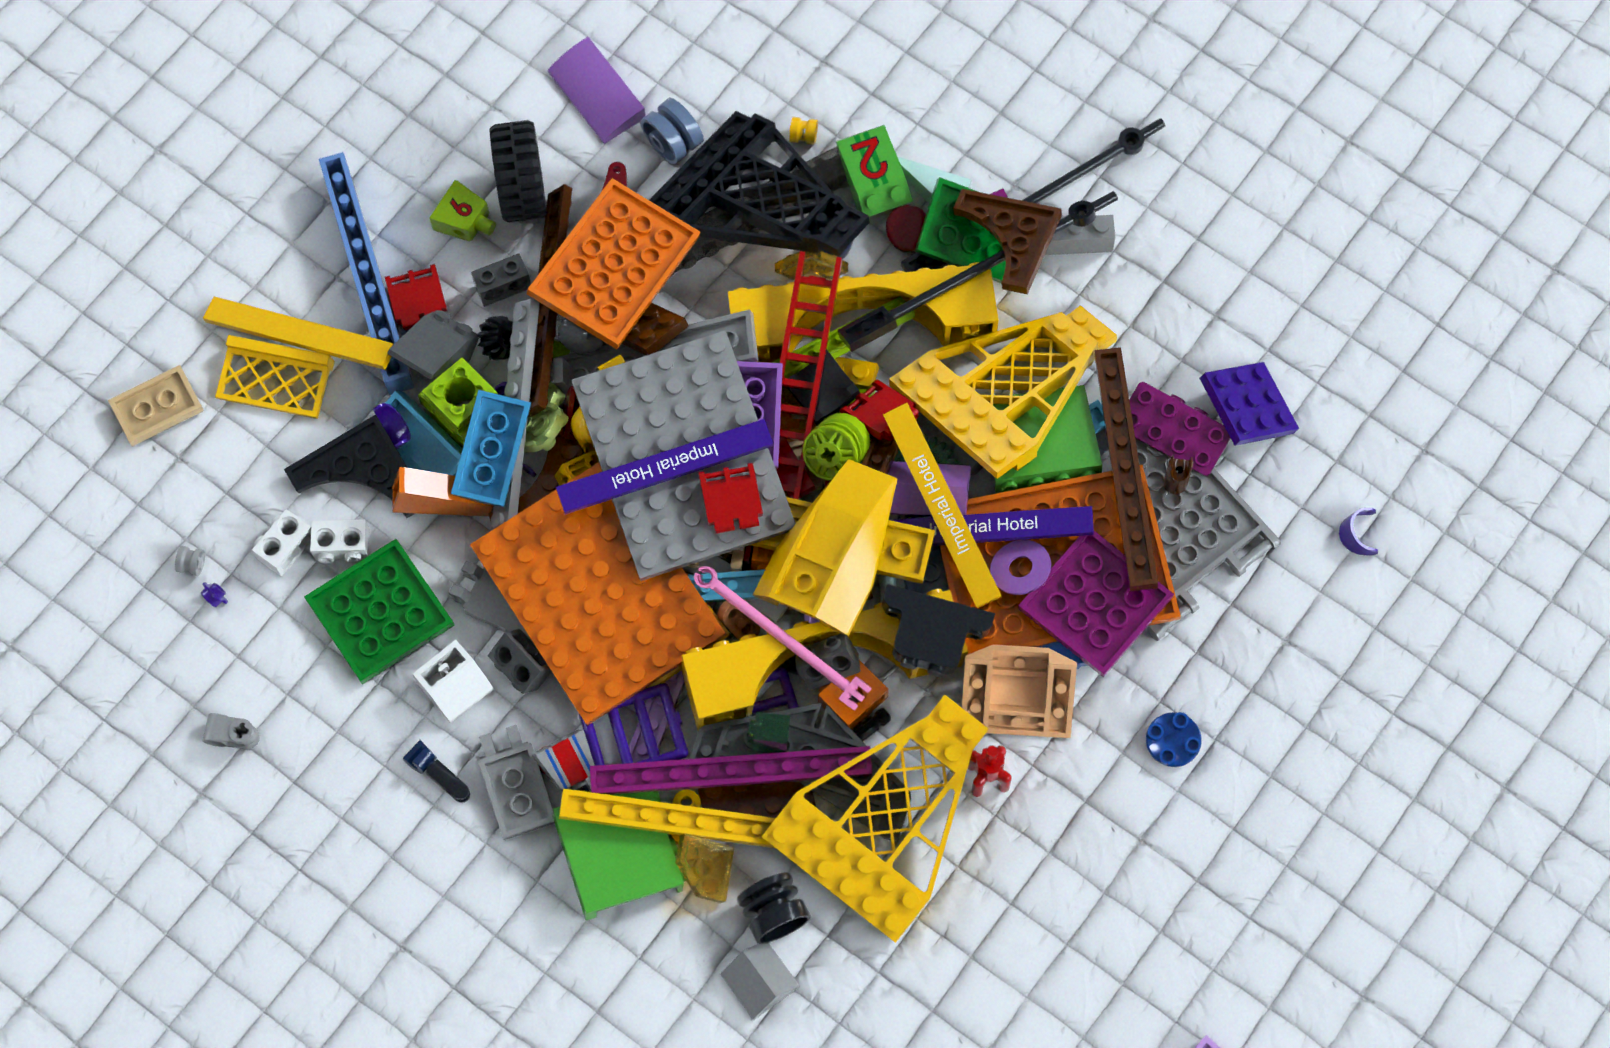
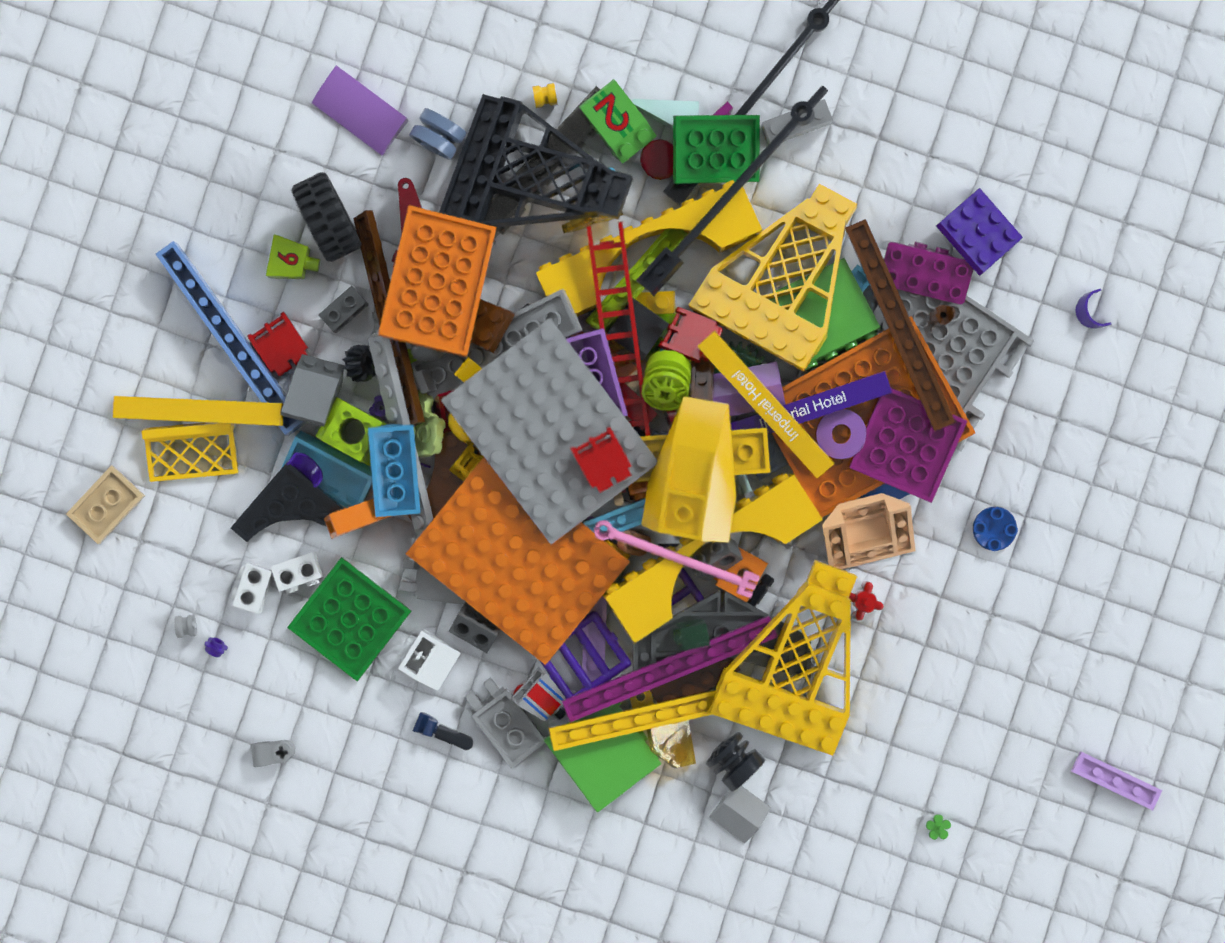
camera: 15 degrees left, 20 degrees up
(664, 466) = (541, 450): dark purple tile -> none
(932, 629) = (792, 516): black brick -> none
(1020, 228) = (759, 146): reddish brown plate -> none

